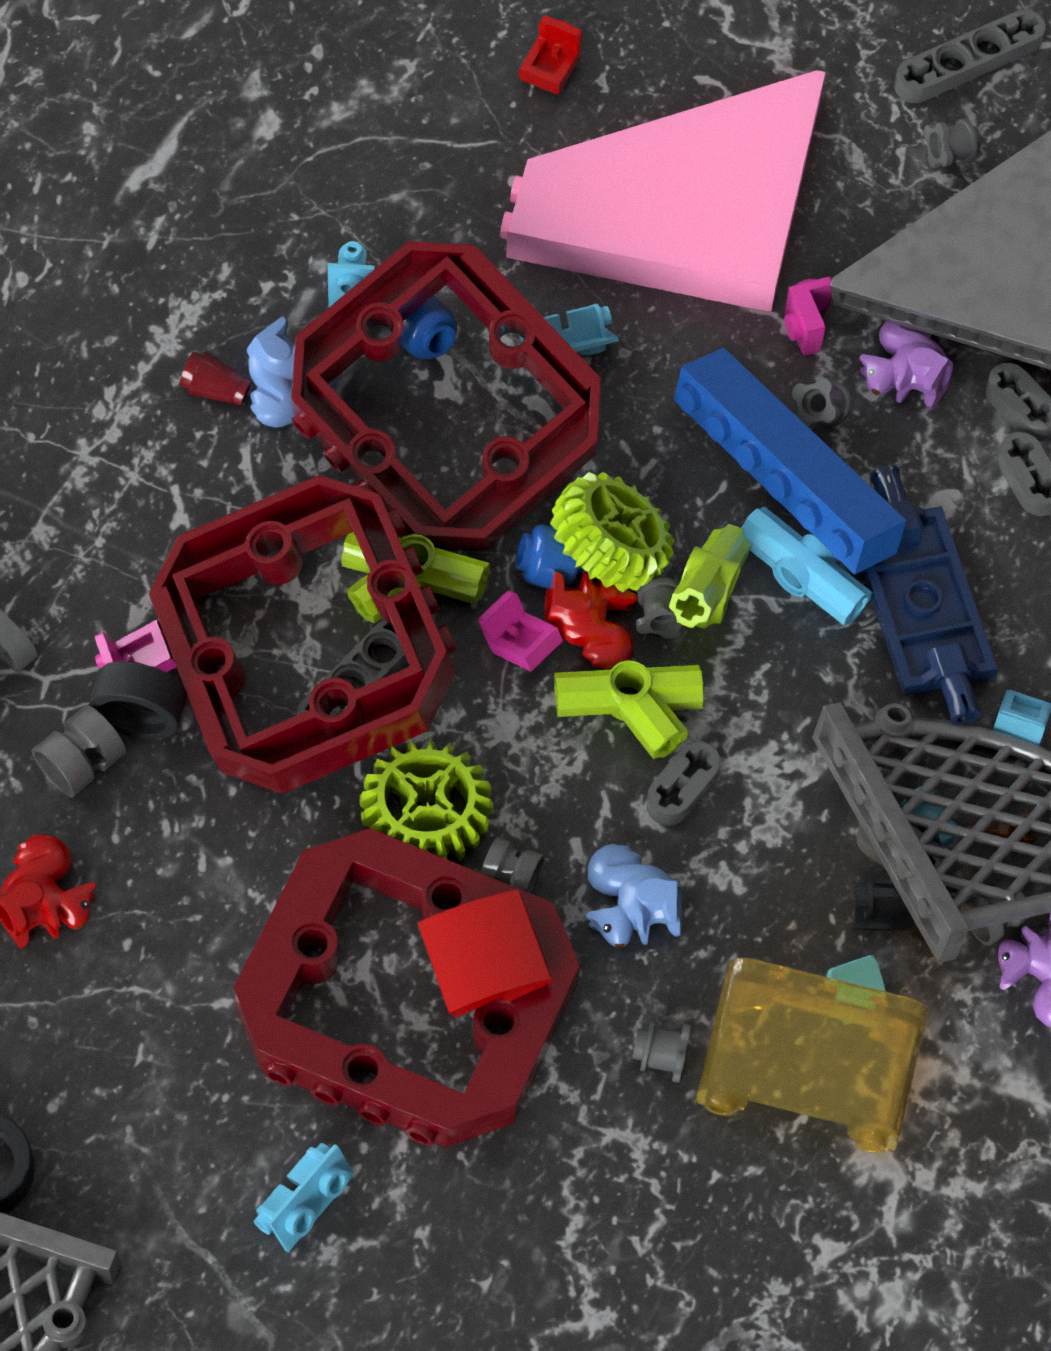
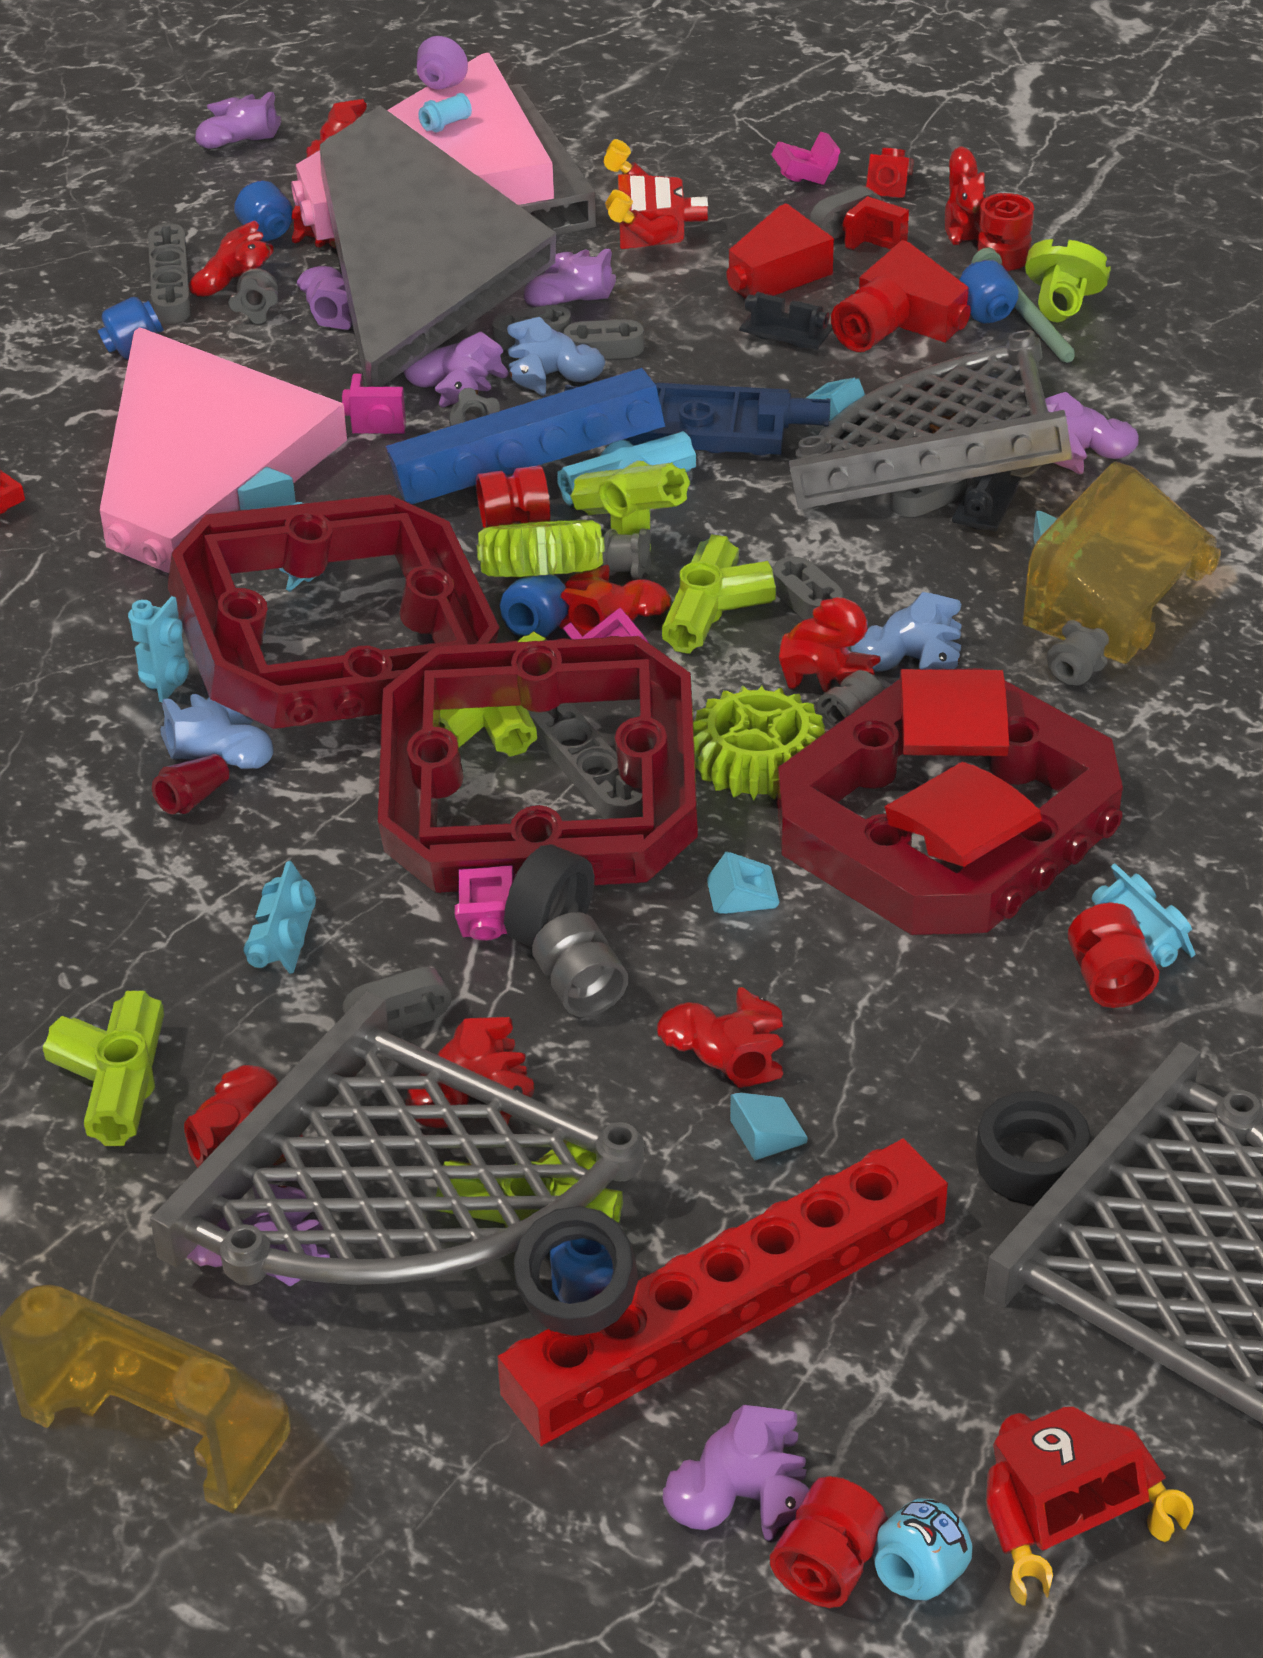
camera: 65 degrees left, 20 degrees down
(72, 516) = (282, 920): none -> medium azure hinge
(231, 1174) = (1113, 955): none -> red wheel
(243, 852) = (741, 885): none -> medium azure slope
(338, 997) = (963, 813): none -> red slope
(561, 821) = (822, 643): none -> red animal
(624, 279) = (267, 490): none -> medium azure slope
(702, 483) = (513, 498): none -> red wheel
(848, 64) = (123, 320): none -> blue head
(974, 429) = (546, 351): none -> medium blue animal
(1000, 103) = (237, 253): none -> red animal

